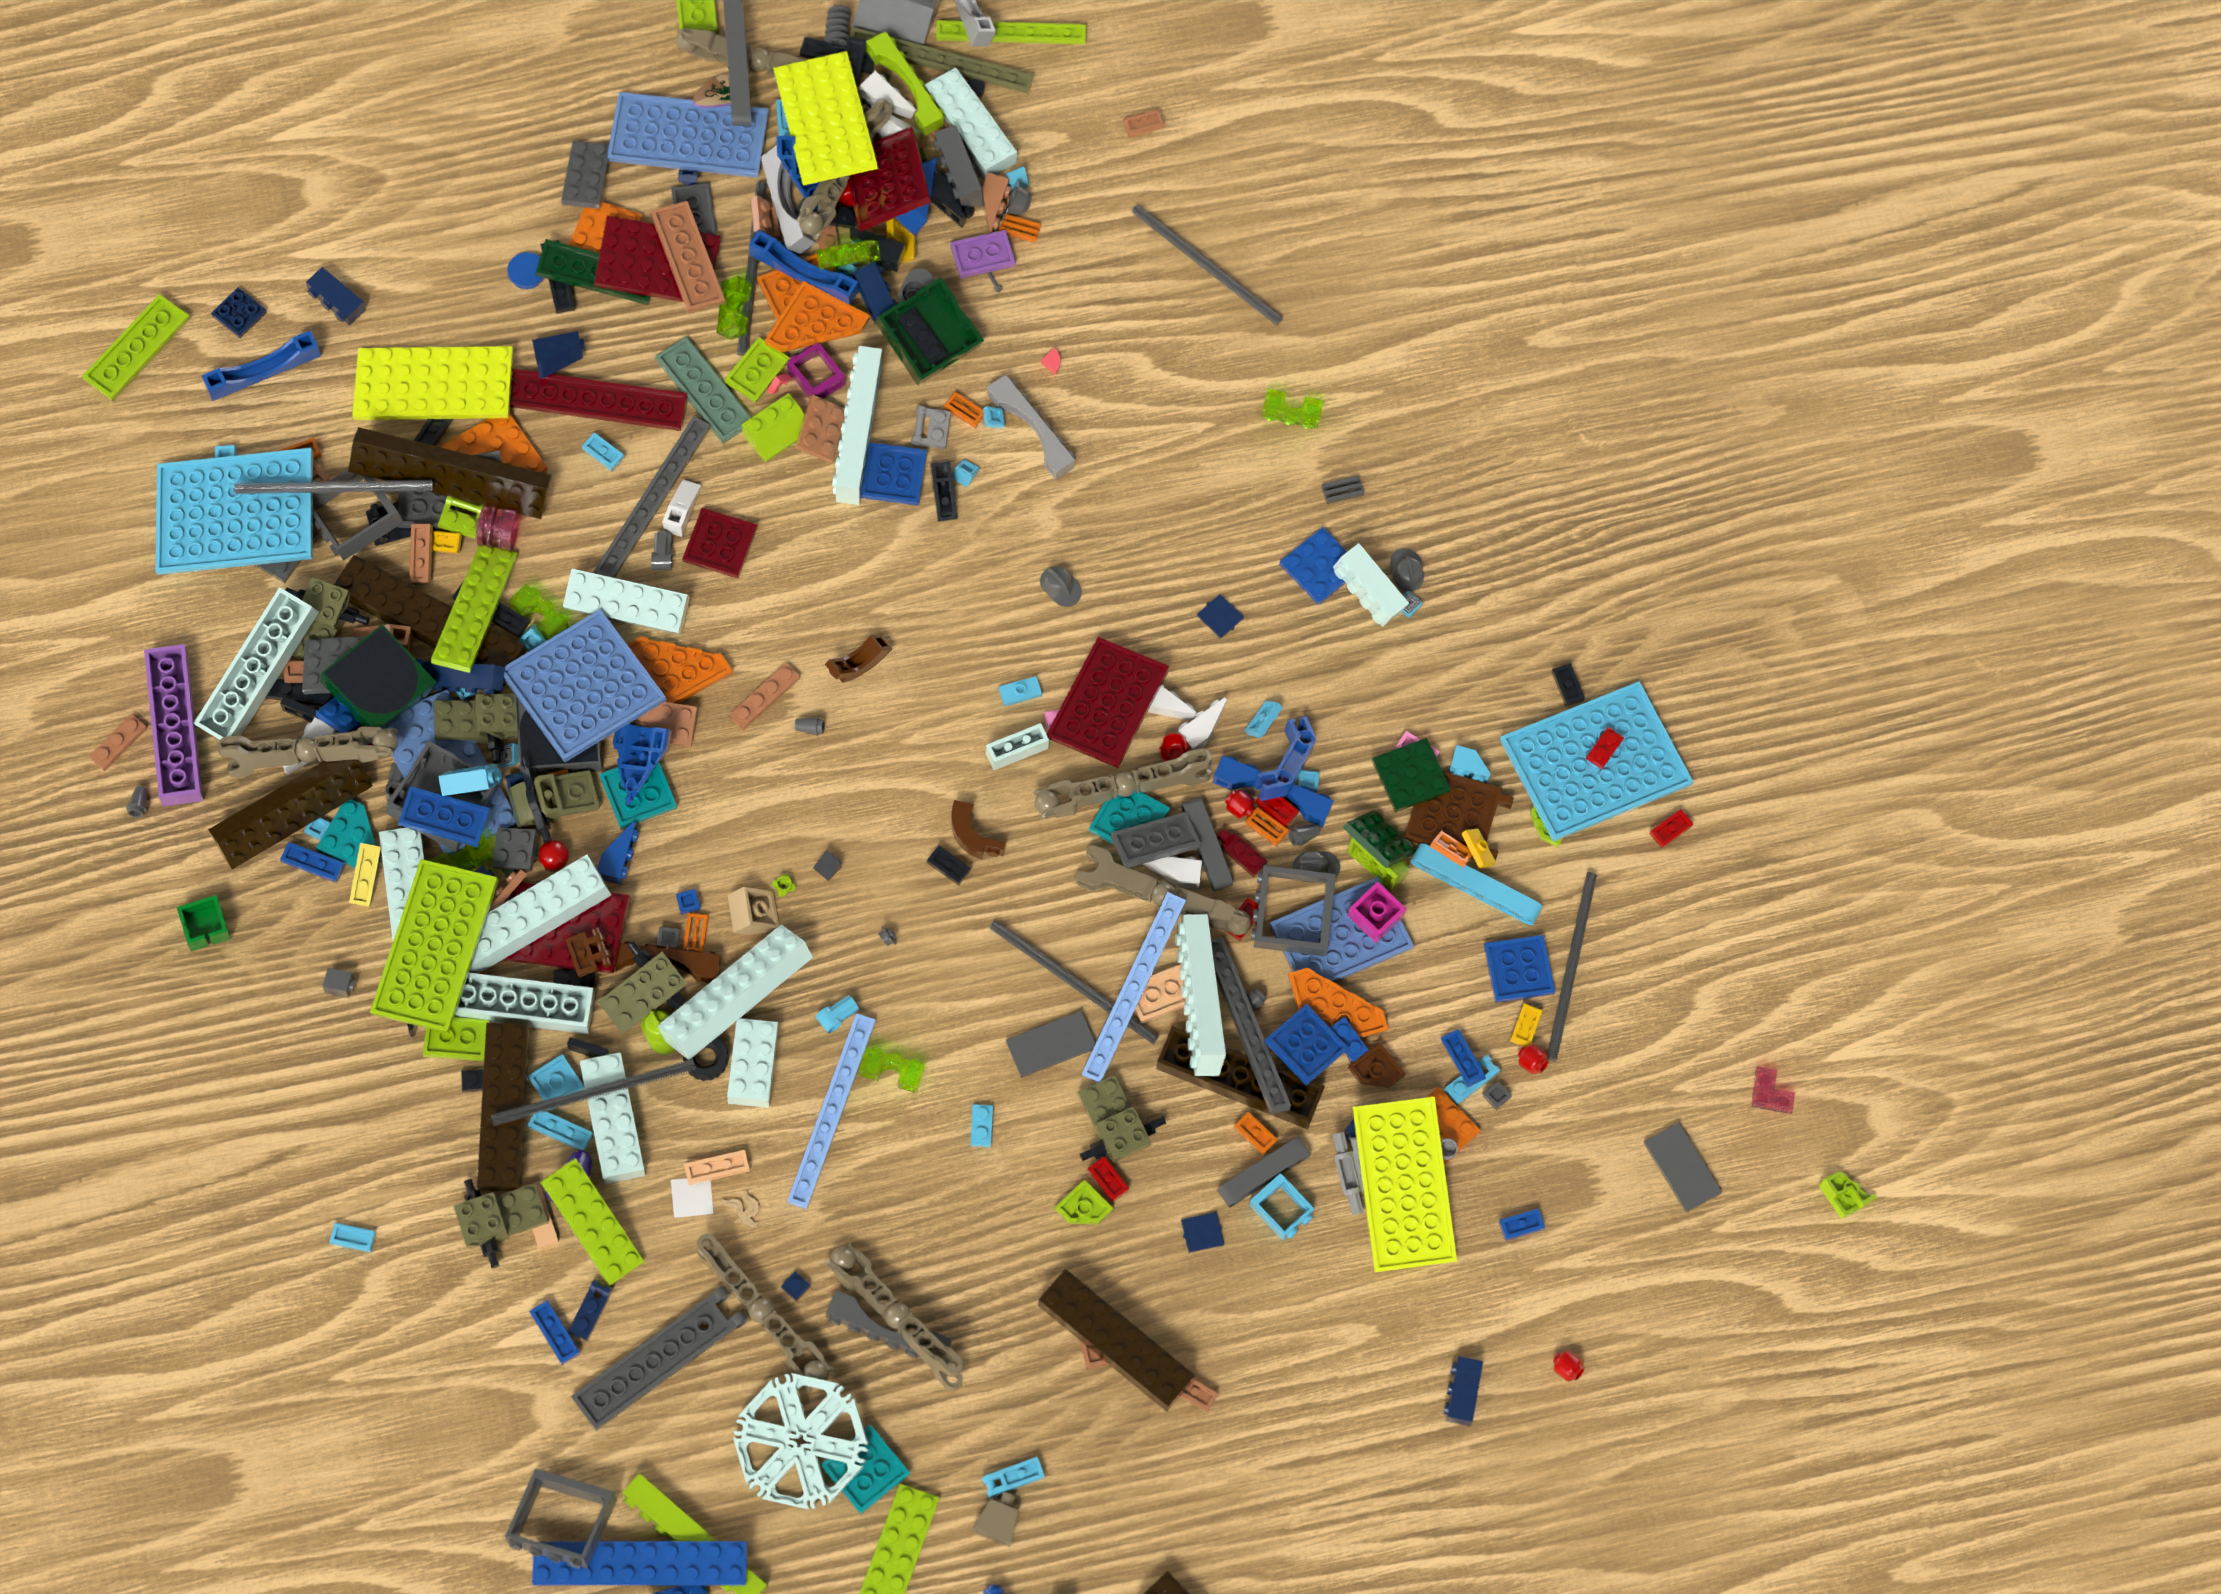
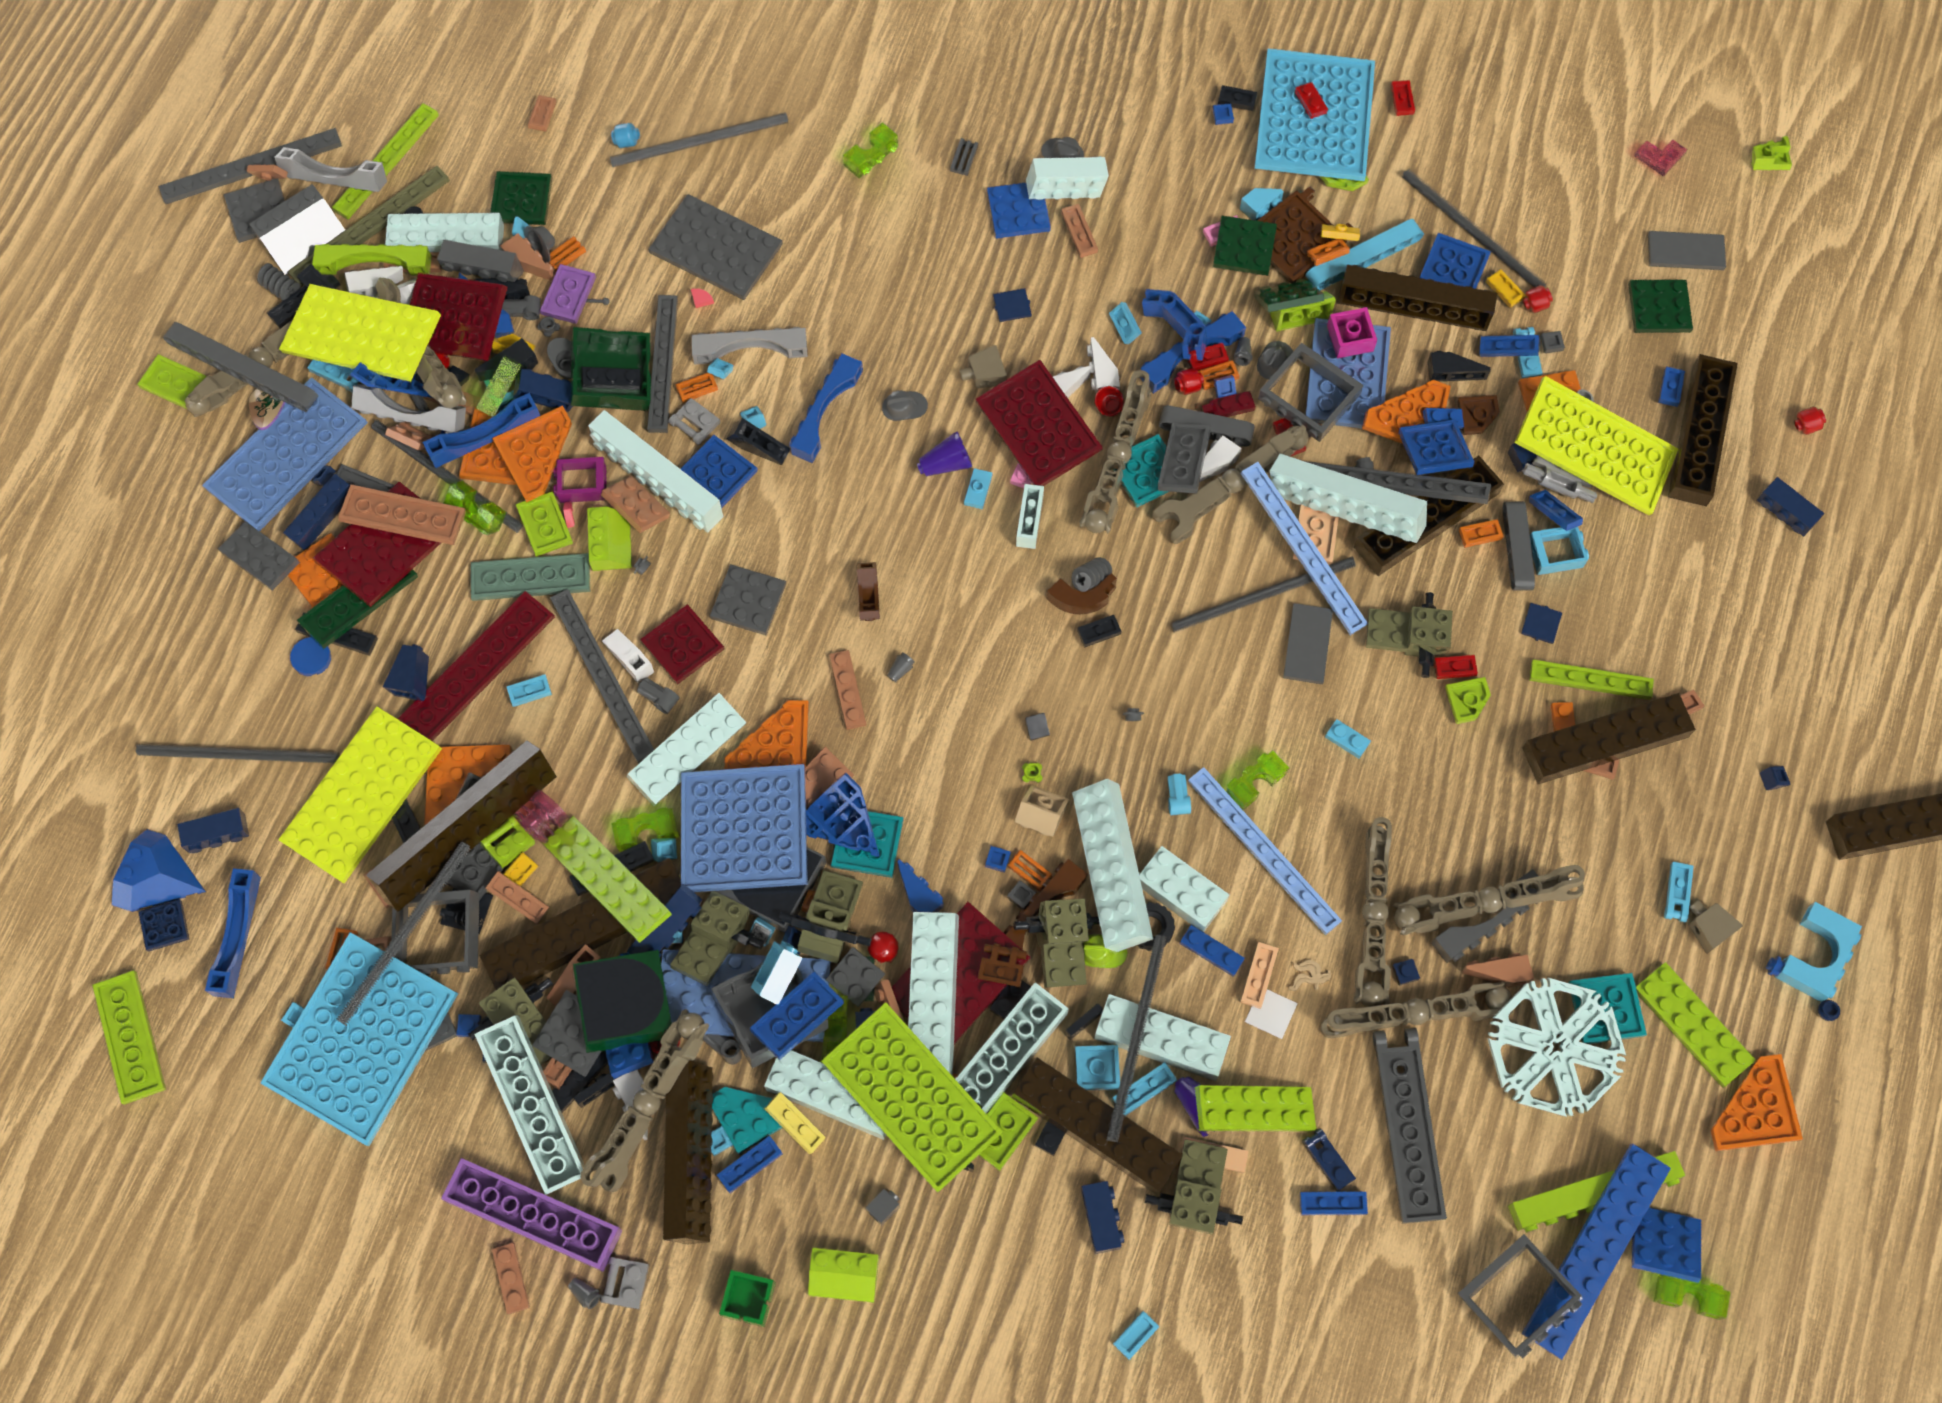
camera: 50 degrees left, 0 degrees up
(166, 833) = (632, 1283): none -> light grey plate
(266, 985) = (843, 1275): none -> lime slope
(274, 276) = (152, 874): none -> blue wedge
(296, 582) = (466, 1024): none -> blue plate
(409, 271) = (236, 753): none -> dark grey axle
(431, 1155) = (1102, 1217): none -> dark blue brick
(650, 193) = (318, 513): none -> dark blue brick
(716, 1119) = (1212, 950): none -> blue plate
(769, 468) = (641, 565): none -> dark grey plate
(794, 570) = (748, 600): none -> dark grey plate
(828, 1230) = (1375, 915): none -> dark tan piece
(846, 1368) = (1512, 970): none -> nougat slope
(942, 253) = (548, 321): none -> dark grey plate
(946, 230) = (527, 308): none -> dark grey piece
(967, 369) = (663, 364): none -> dark grey plate
(994, 826) = (1091, 574): none -> dark grey piece
(1030, 647) = (945, 457): none -> dark purple cone
(1049, 159) = (522, 196): none -> dark green plate
(1053, 519) = (843, 376): none -> blue arch
(1110, 342) = (715, 246): none -> dark grey plate
(1121, 1296) = (1562, 715): none -> orange plate
(1138, 629) = (985, 368): none -> dark tan torso
(1167, 202) = (625, 135): none -> dark azure head
(1171, 1302) = (1591, 679): none -> lime plate
(1179, 1510) = (1774, 778): none -> dark blue slope
(1256, 837) = (1225, 386): none -> blue plate
(1317, 1183) = (1555, 510): none -> blue plate
(1332, 628) = (1079, 230): none -> nougat plate
(1407, 1018) = (1453, 367): none -> black slope
(1456, 951) = (1417, 298): none -> dark brown brick
(1490, 1272) = (1703, 430): none -> dark brown brick
(1541, 682) = (1223, 114): none -> blue plate
(1604, 1173) = (1660, 306): none -> dark green plate

